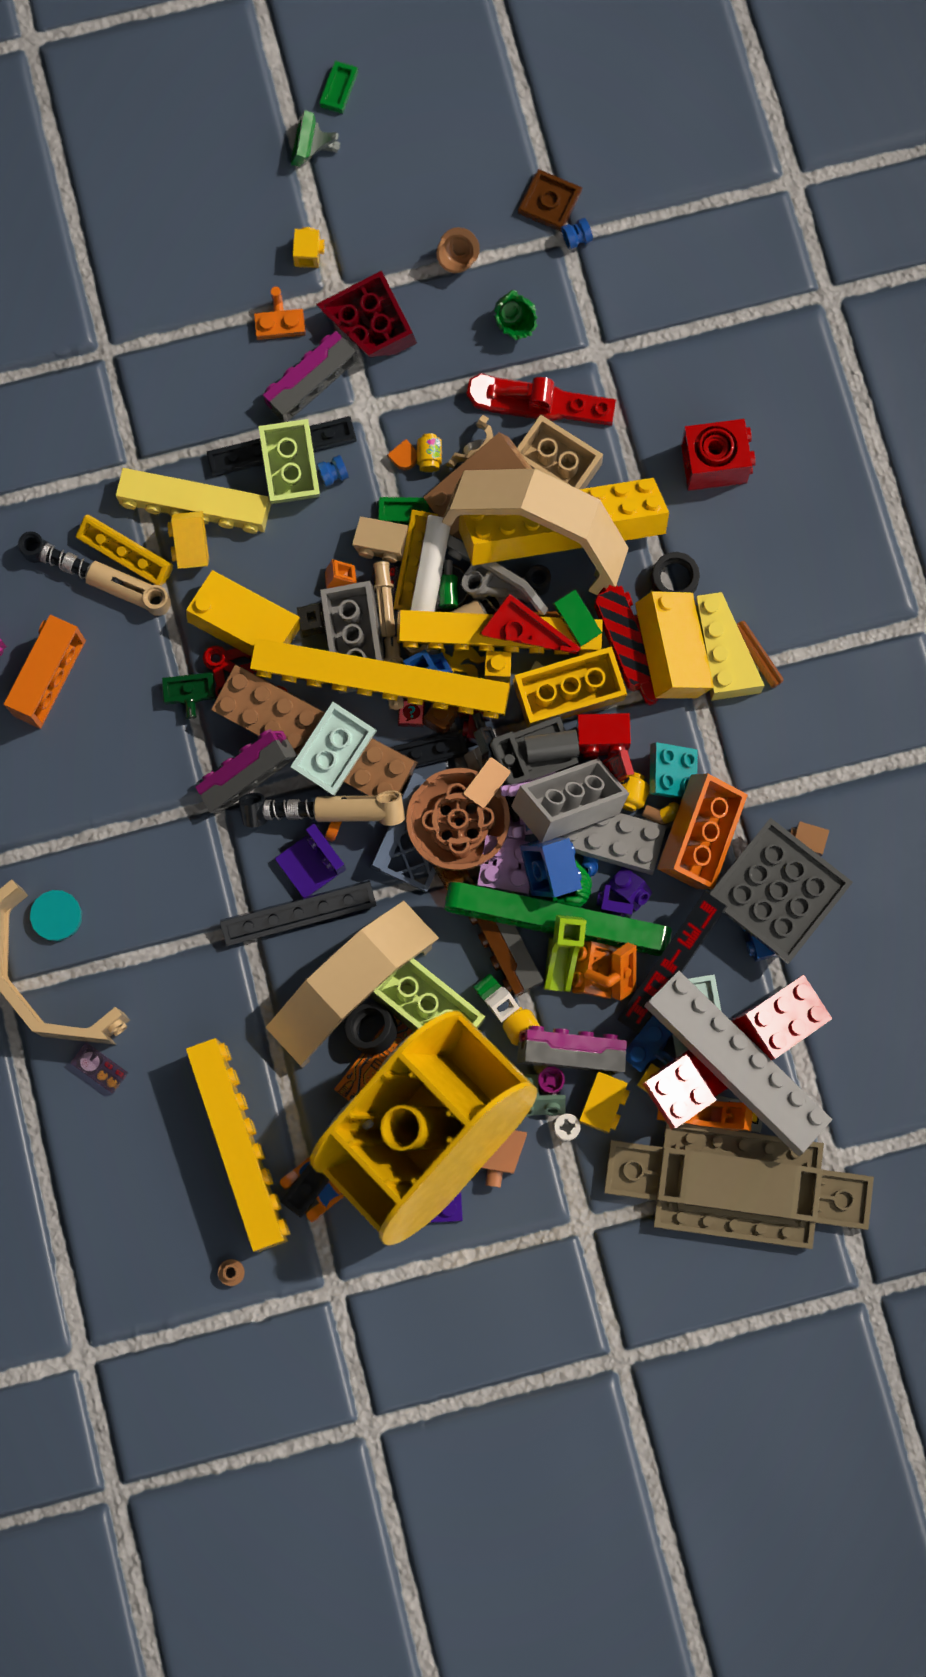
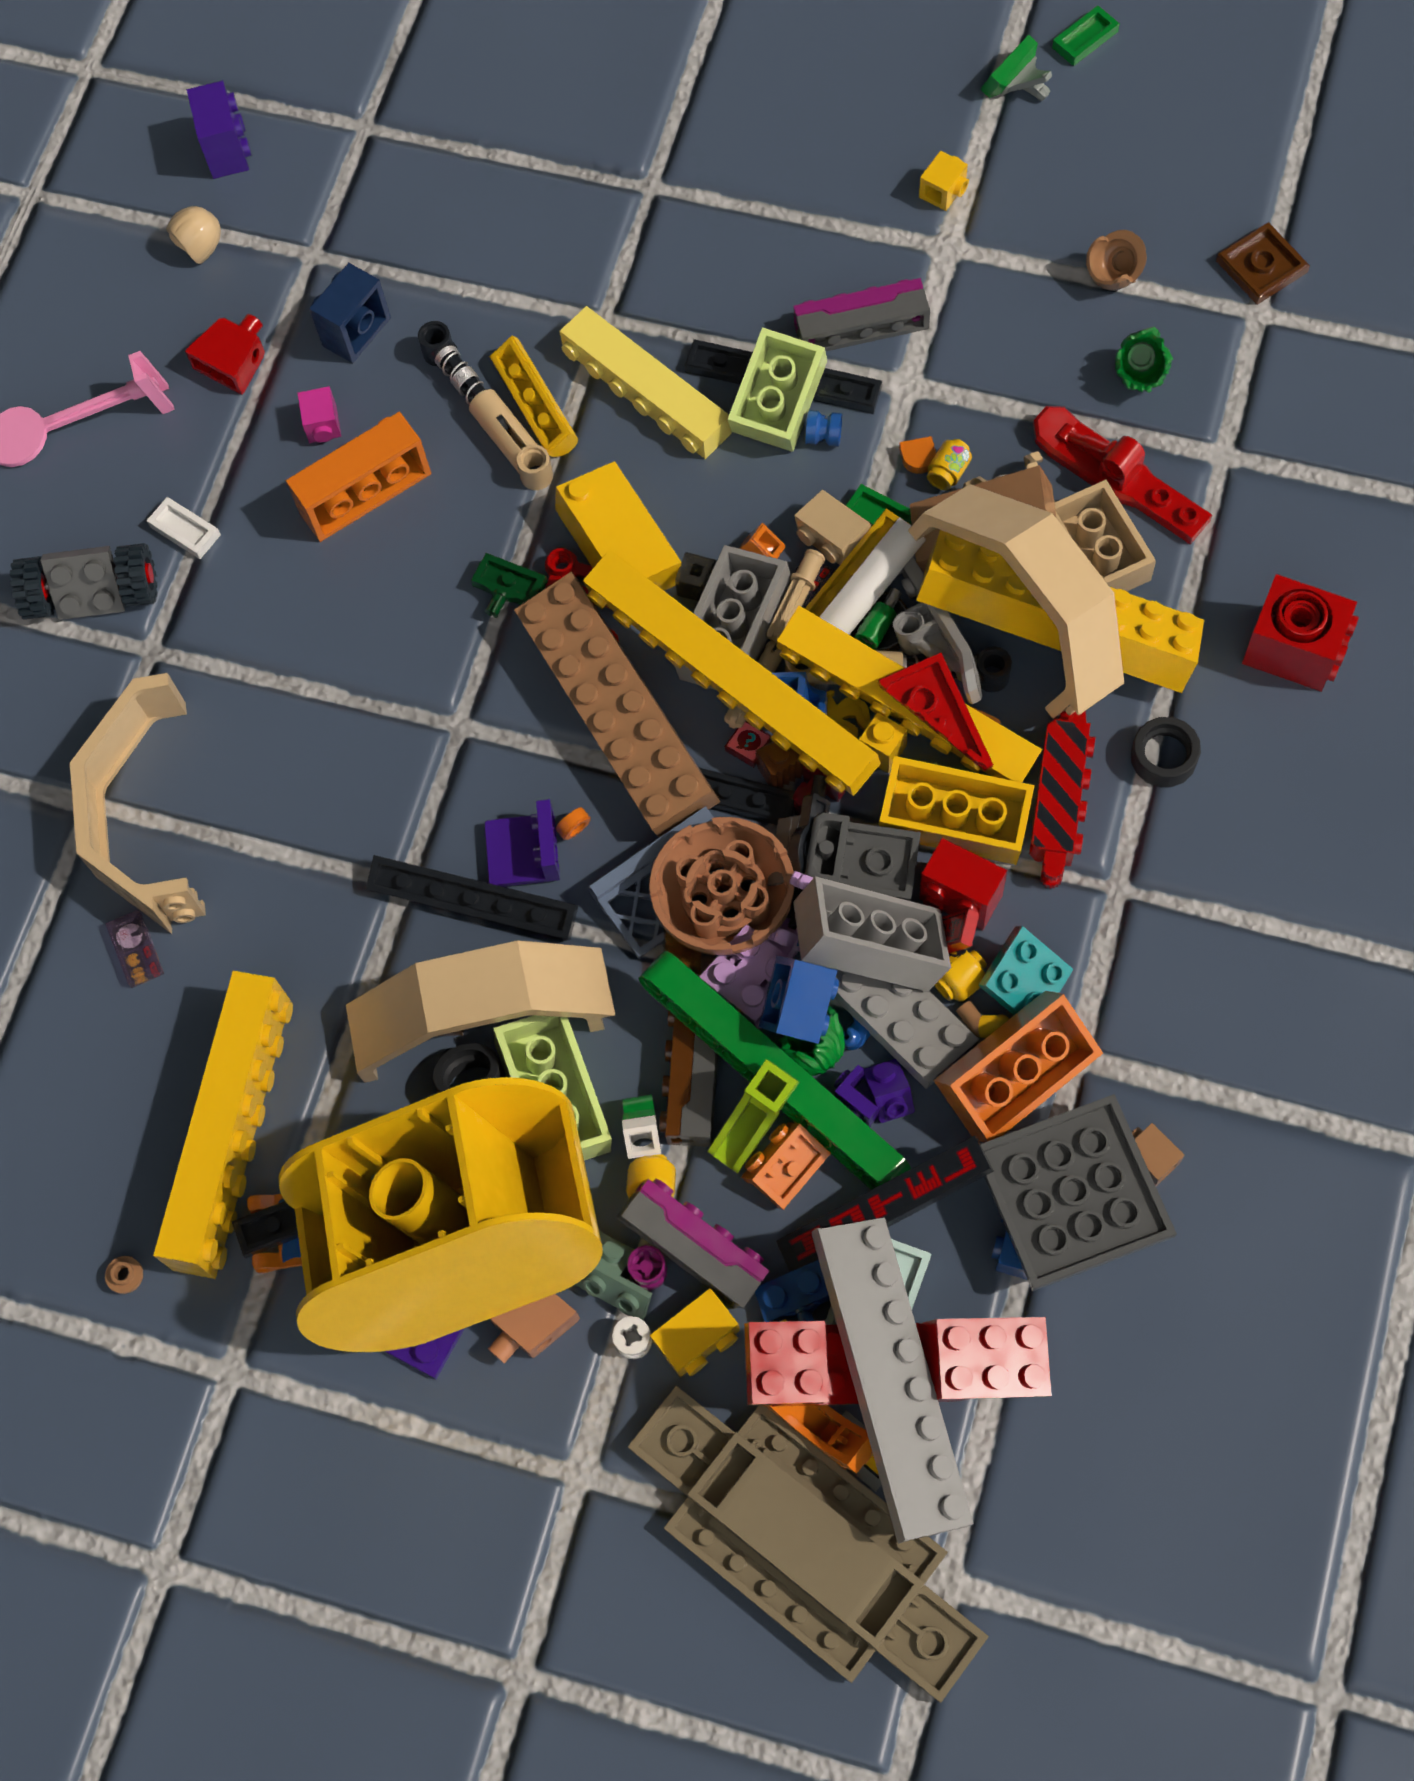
camera: 35 degrees right, 10 degrees down
(56, 915) = (200, 751): teal tile -> none
(189, 540) = (611, 418): yellow brick -> none
(246, 770) = (510, 699): dark grey piece -> none
(279, 322) = (865, 245): orange plate -> none
(333, 748) = (623, 722): light aqua plate -> none
(370, 317) = (971, 283): dark red wedge -> none
(384, 807) = (641, 823): piece -> none
(487, 782) = (782, 859): light nougat sticker -> none
(551, 746) = (887, 860): dark grey brick -> none
(577, 233) = (1273, 310): blue wheel -> none
(577, 618) = (1010, 729): green tile -> none
(623, 972) = (815, 1183): orange plate -> none
(674, 645) = (1114, 825): yellow brick -> none
(727, 654) = (1175, 877): light yellow wedge -> none
(760, 656) = (1218, 897): dark orange axle -> none

